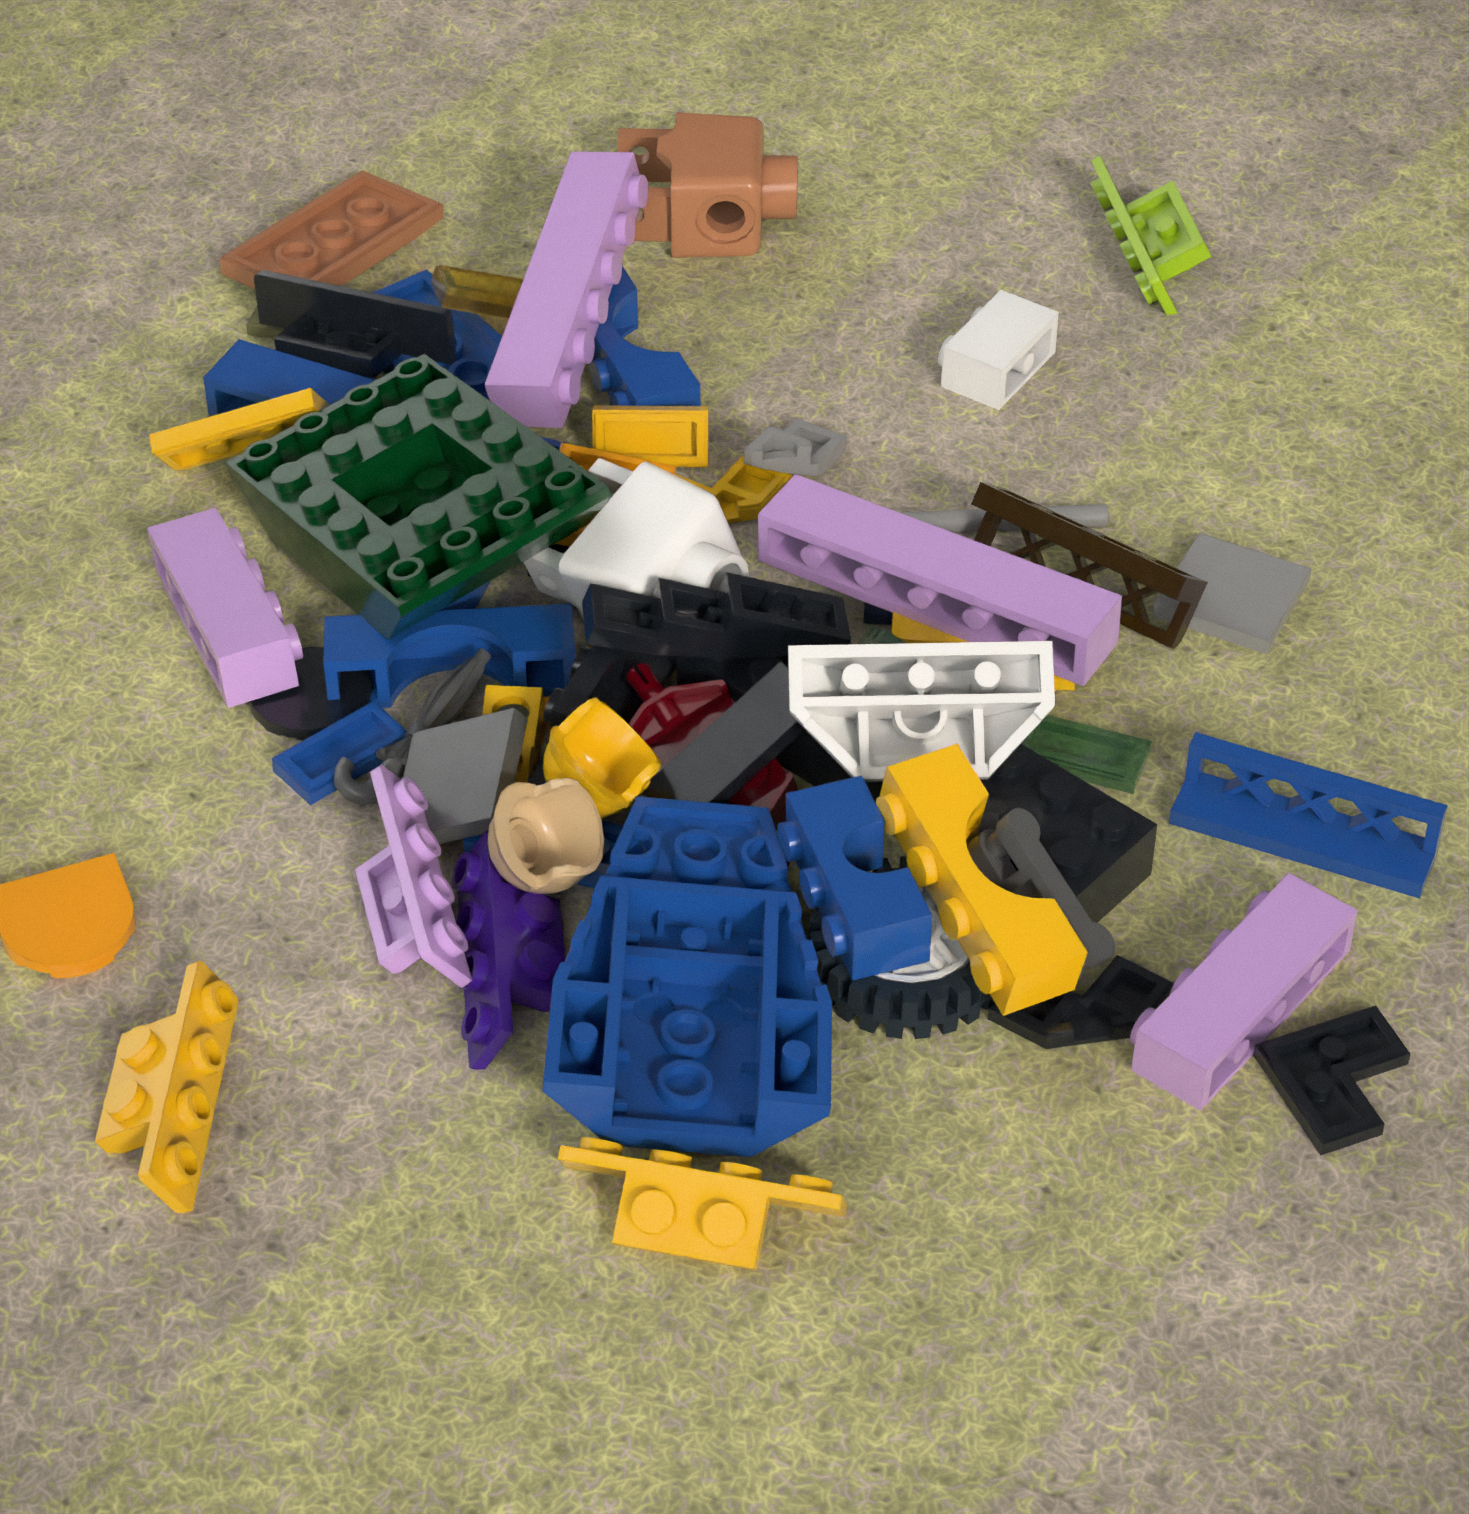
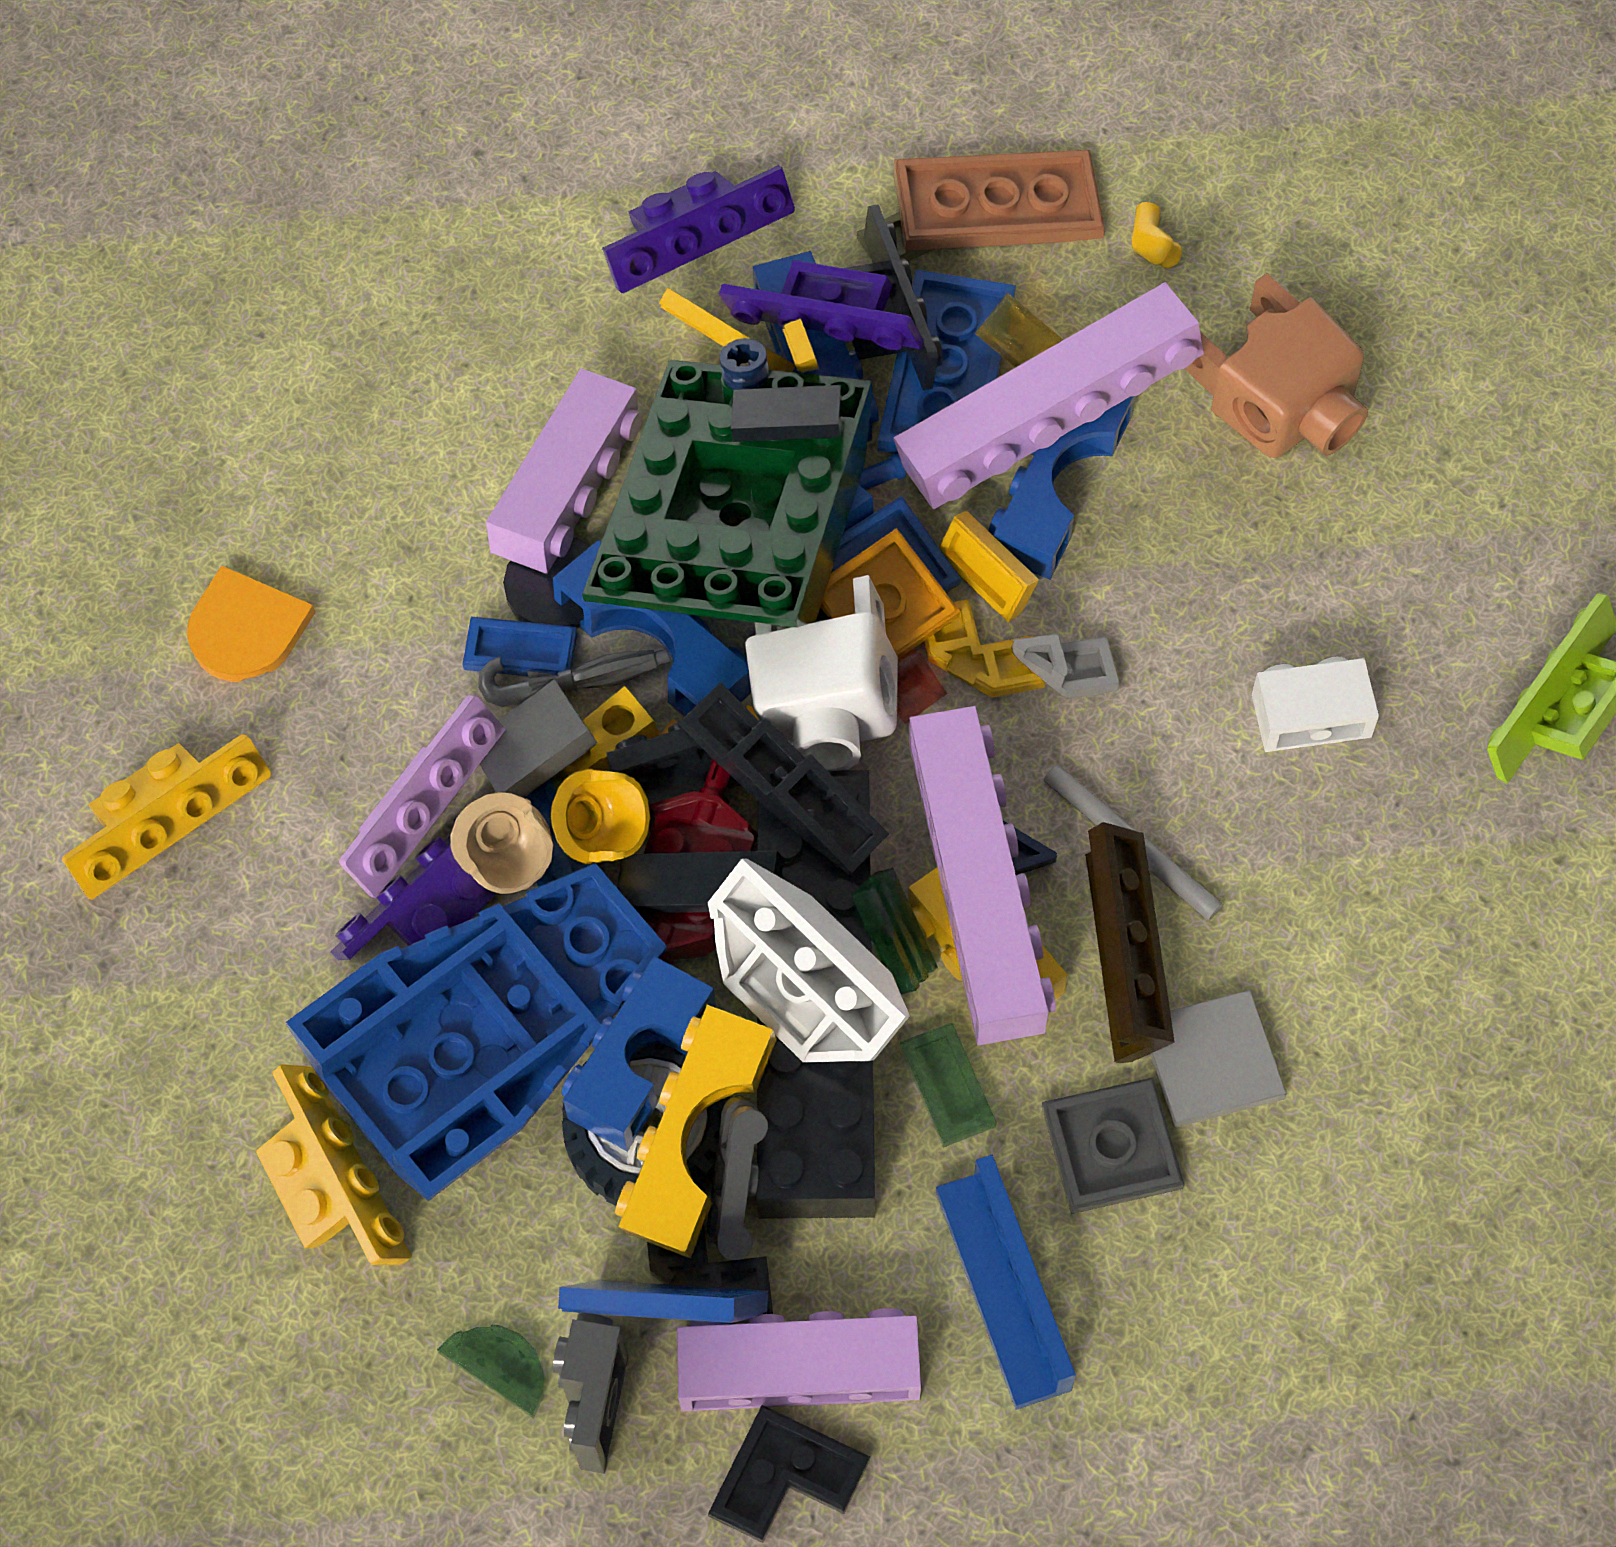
camera: 50 degrees right, 20 degrees up
(100, 399) = (694, 222): none -> dark purple bracket
(311, 401) = (740, 352): none -> dark blue bush
(317, 339) = (829, 301): none -> dark purple bracket
(334, 374) = (800, 346): none -> yellow tile
(398, 396) = (786, 413): none -> black tile
(487, 191) = (1150, 240): none -> yellow arm
(1024, 1201) = (500, 1362): none -> clear green tile
(1109, 1010) = (663, 1301): none -> blue tile
(1139, 1118) = (592, 1375): none -> dark grey plate
(1244, 693) = (1112, 1145): none -> dark grey tile

